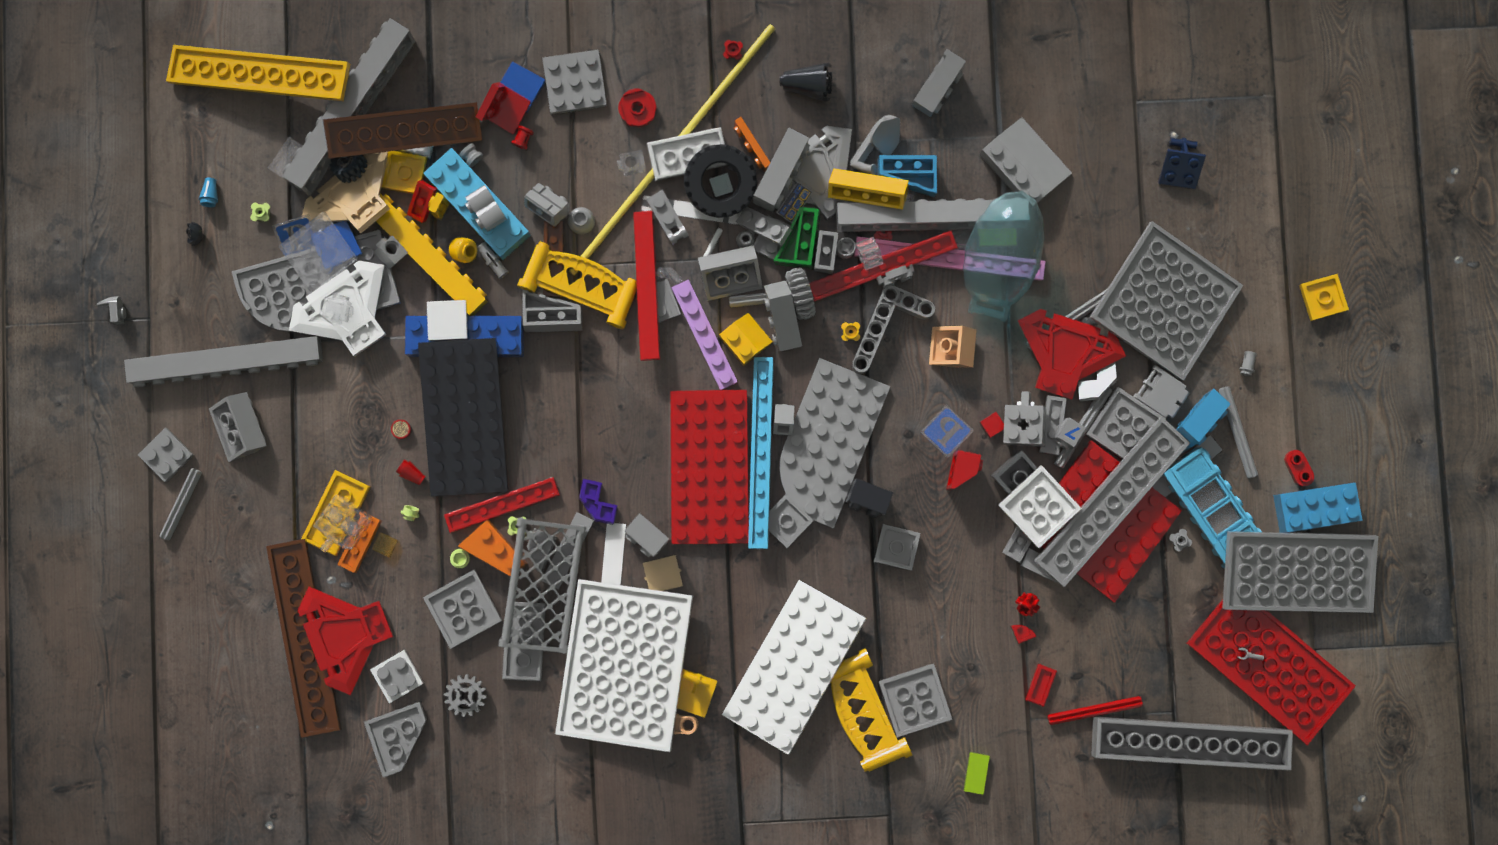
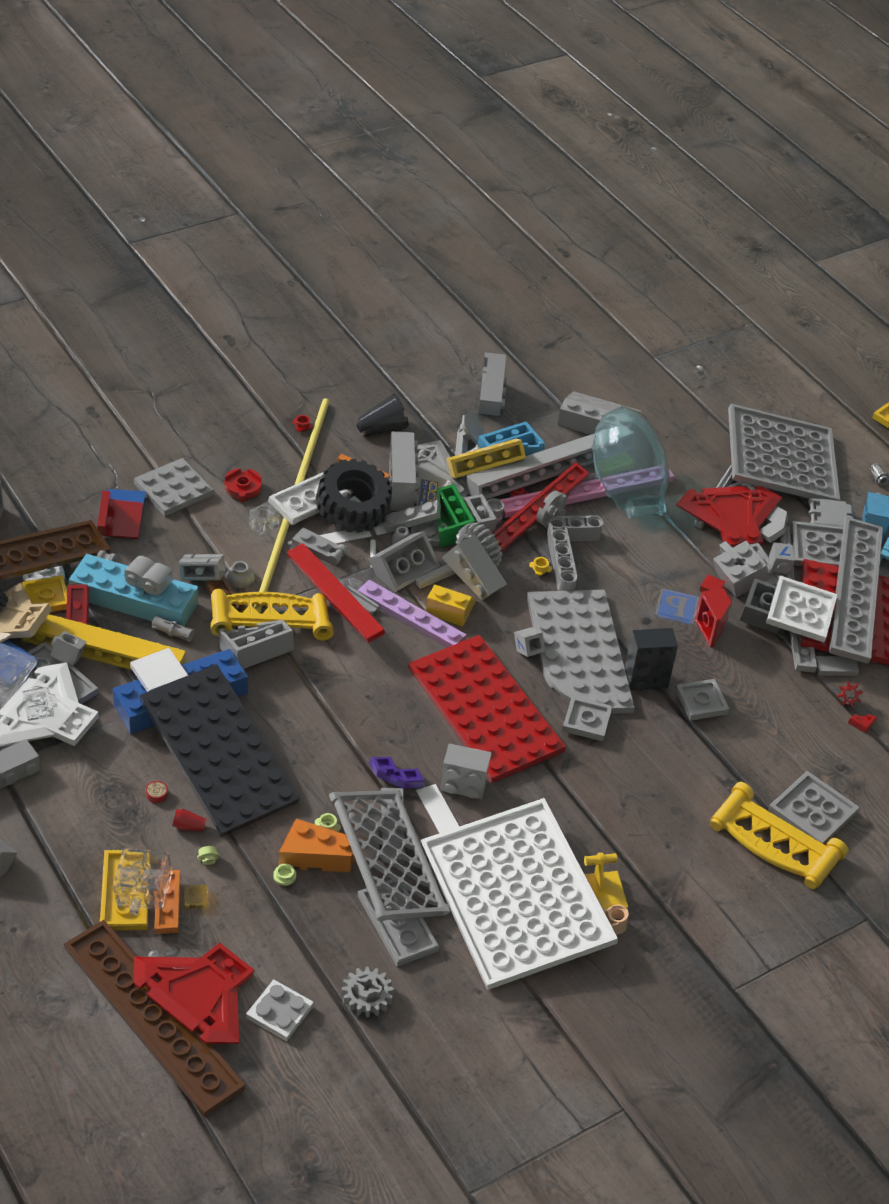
camera: 25 degrees left, 40 degrees down
(395, 736) = (312, 1066): light grey plate -> none
(438, 205) = (97, 604): yellow plate -> none
(462, 609) = (315, 916): light grey plate -> none
(463, 249) = (140, 625): yellow head -> none
(501, 505) = (306, 809): red tile -> none
(522, 137) = (148, 532): red bush -> none
(663, 574) = (496, 803): tan piece -> none
(761, 453) = (528, 675): medium azure plate -> none
(794, 667) = (682, 828): white plate -> none
(869, 253) = (519, 498): clear brick -> none
(952, 346) = (636, 543): light nougat slope -> none
(1182, 167) = (723, 375): dark blue plate -> none

